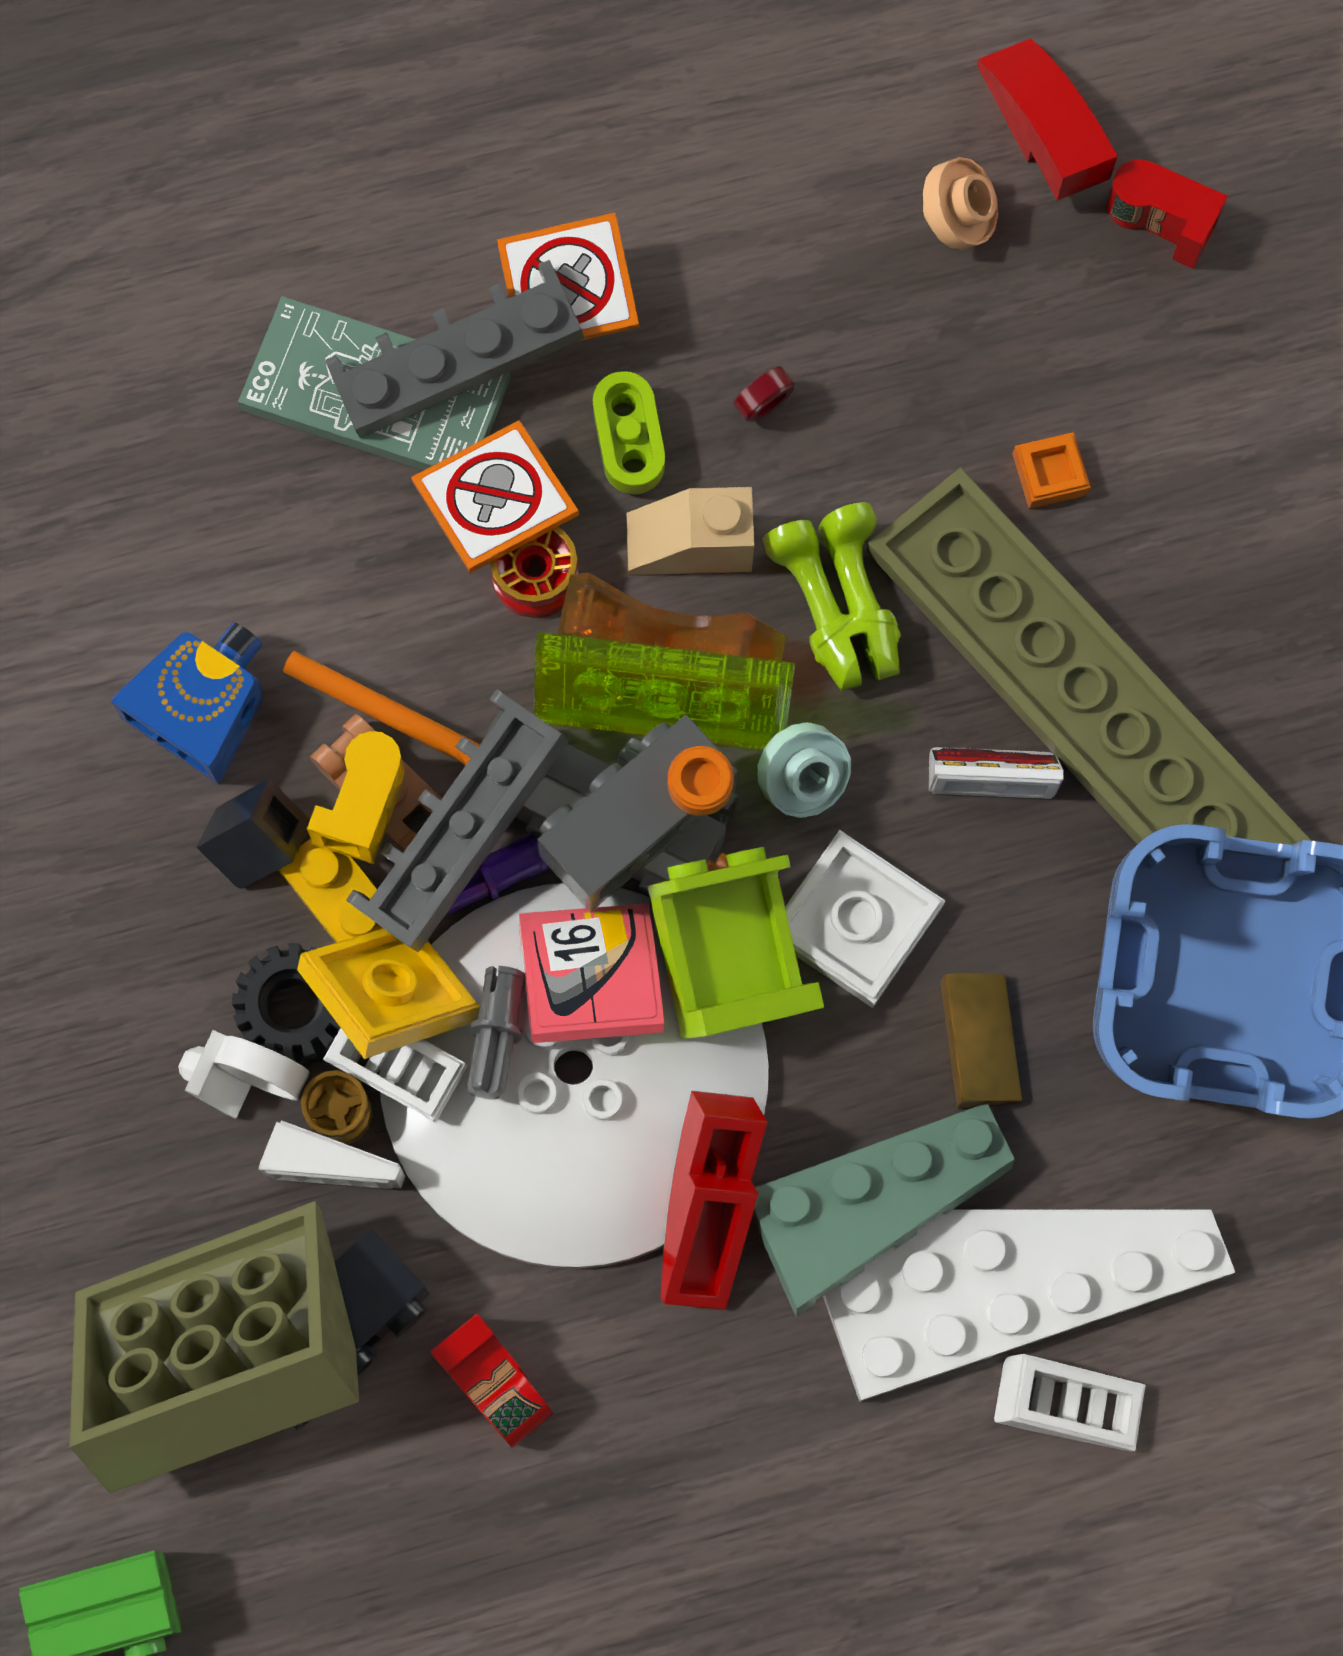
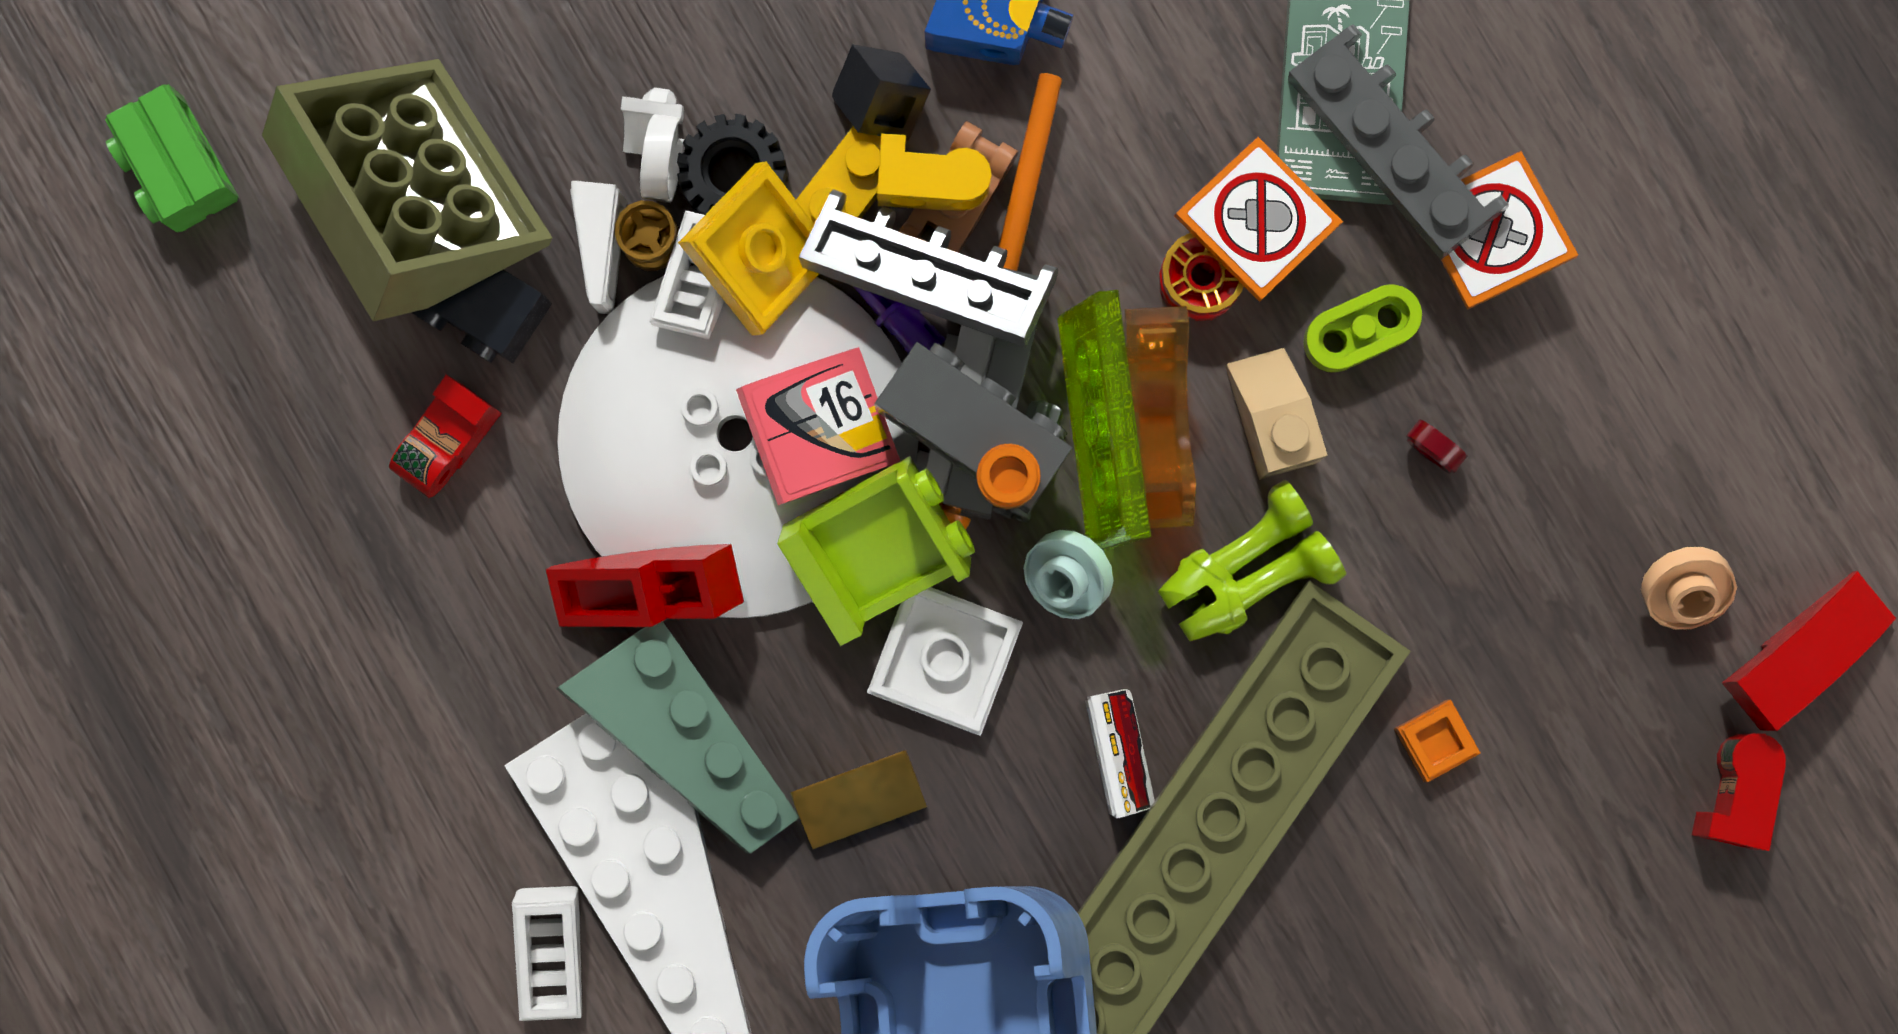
camera: 80 degrees right, 10 degrees up
(495, 1031) = (741, 354): dark grey axle -> none

